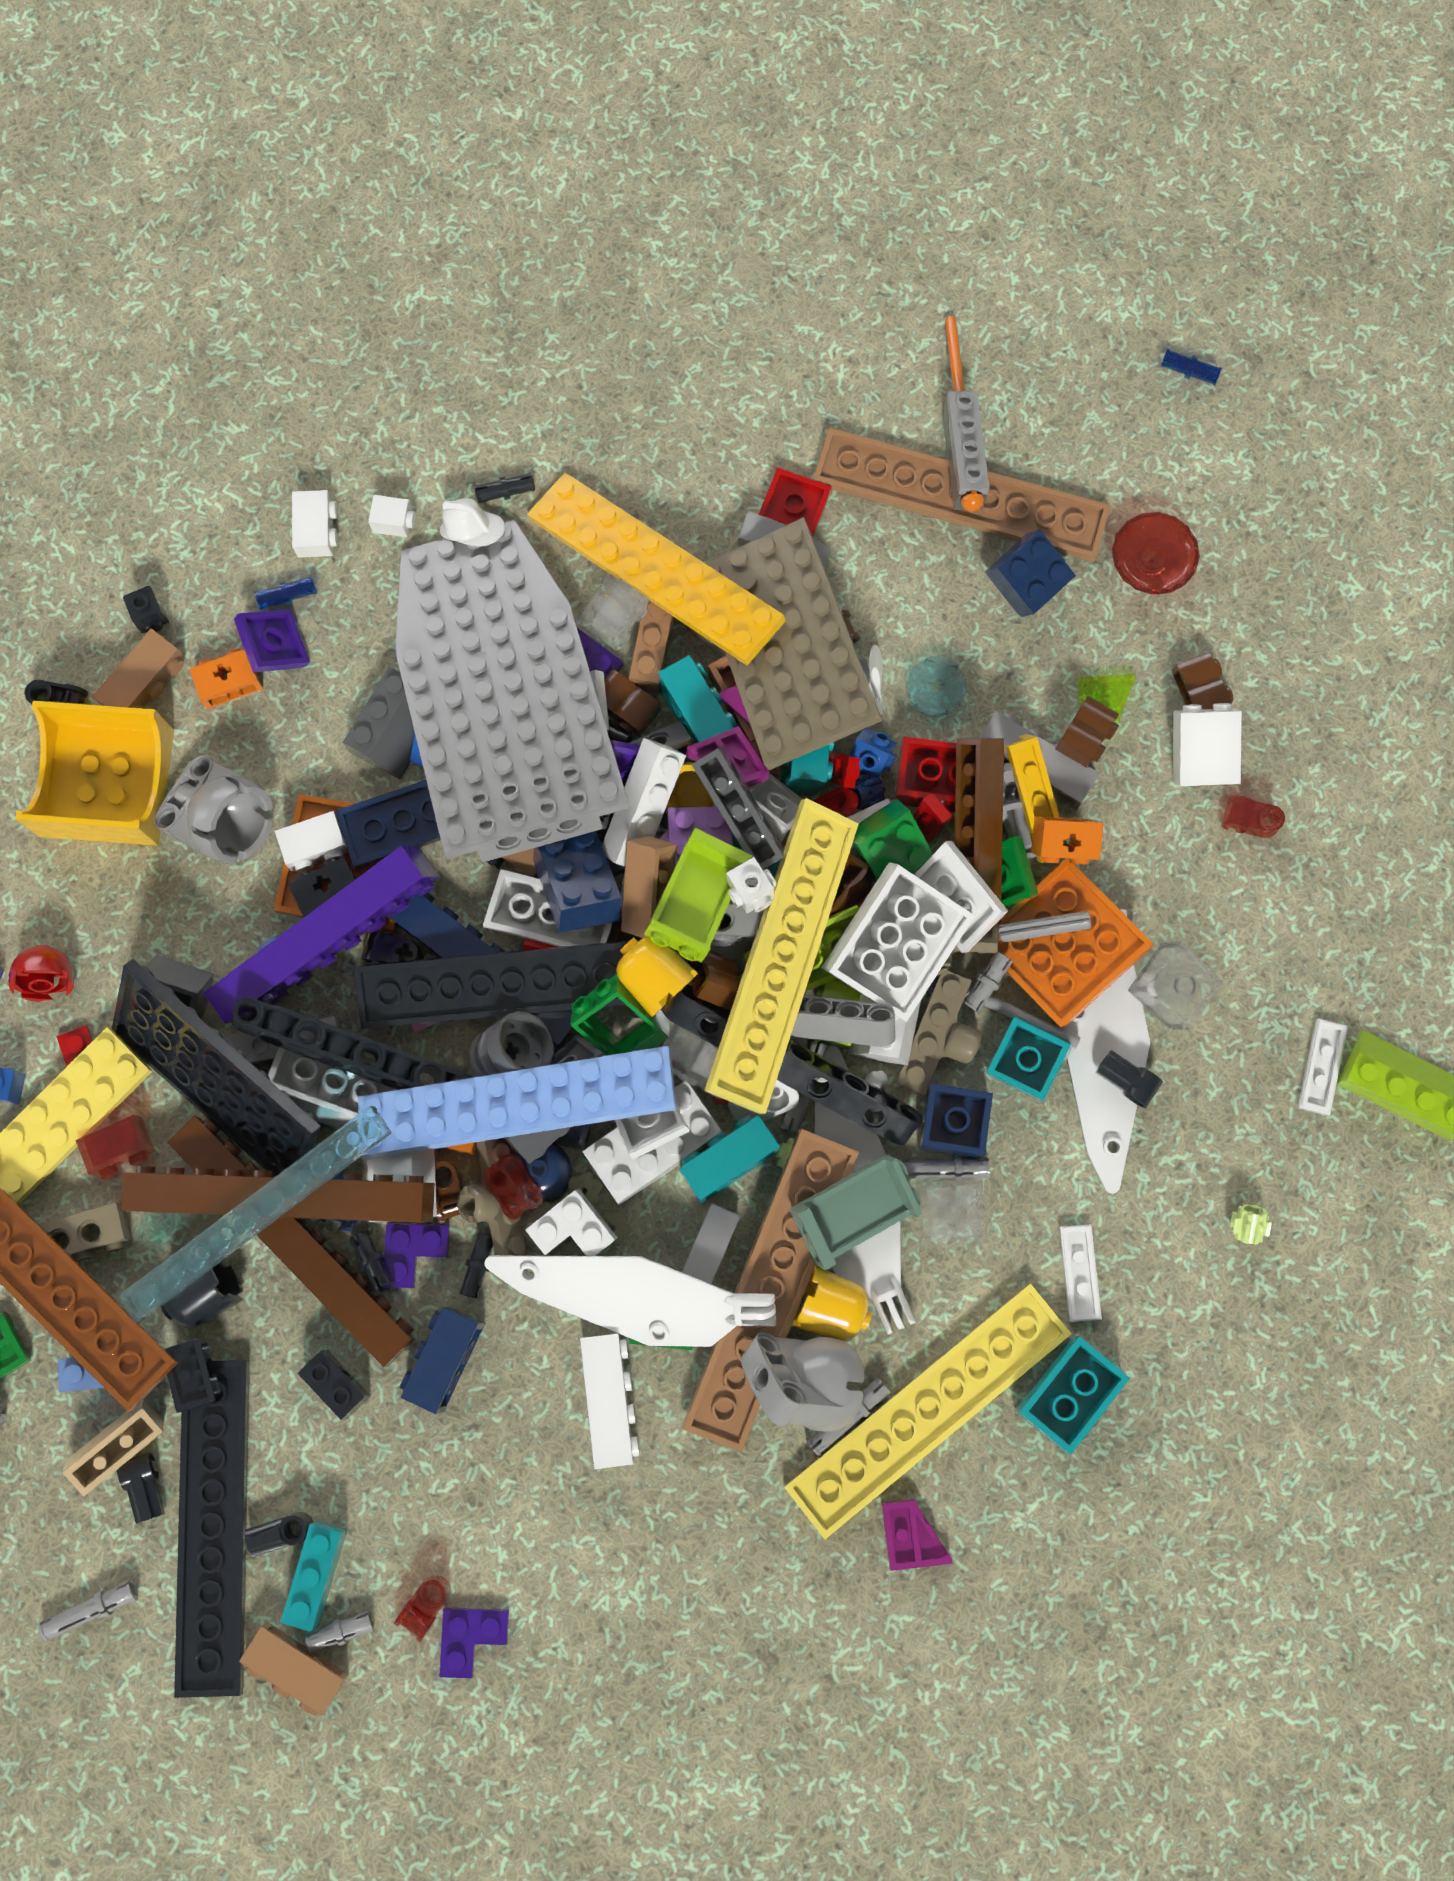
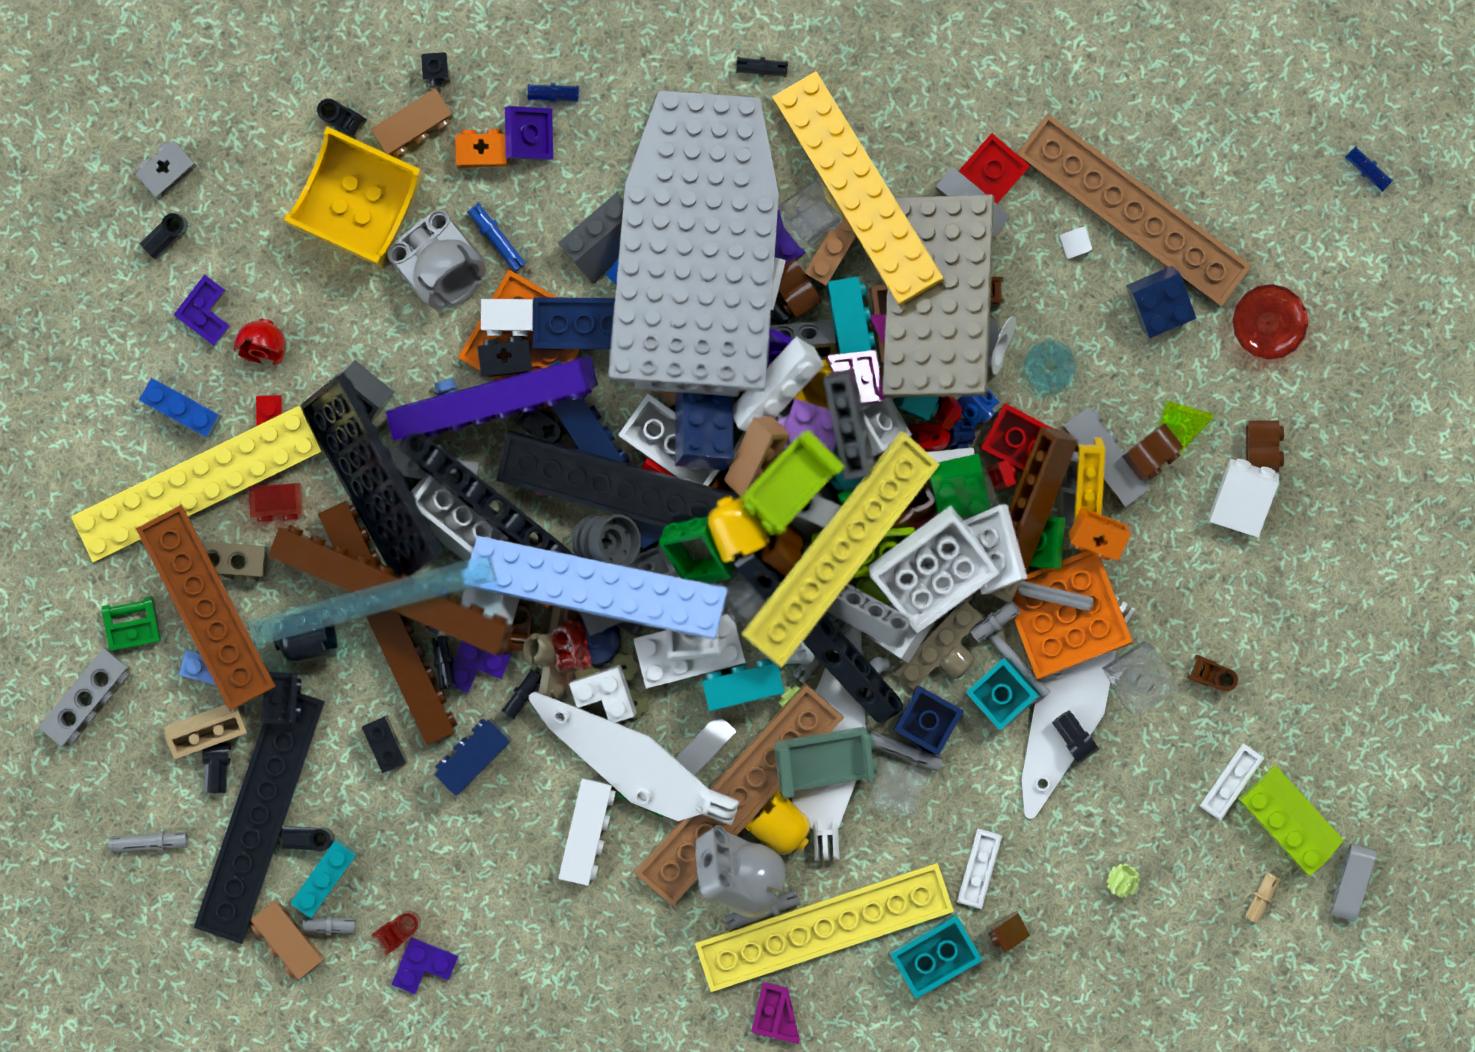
camera: 20 degrees right, 10 degrees up
(264, 759) = (496, 237): none -> blue pin
(313, 523) = (595, 42): white brick -> none
(391, 516) = (661, 59): white brick -> none
(469, 524) = (723, 91): white piece -> none
(751, 886) = (837, 482): white brick -> none
(913, 549) = (1076, 242): none -> white slope
(963, 434) = (1154, 162): light grey piece -> none
(1144, 1334) = (1008, 932): none -> reddish brown slope
(1247, 954) = (1211, 674): none -> reddish brown piece
(1248, 817) = (1254, 563): clear red piece -> none
(1414, 1184) = (1262, 897): none -> tan axle

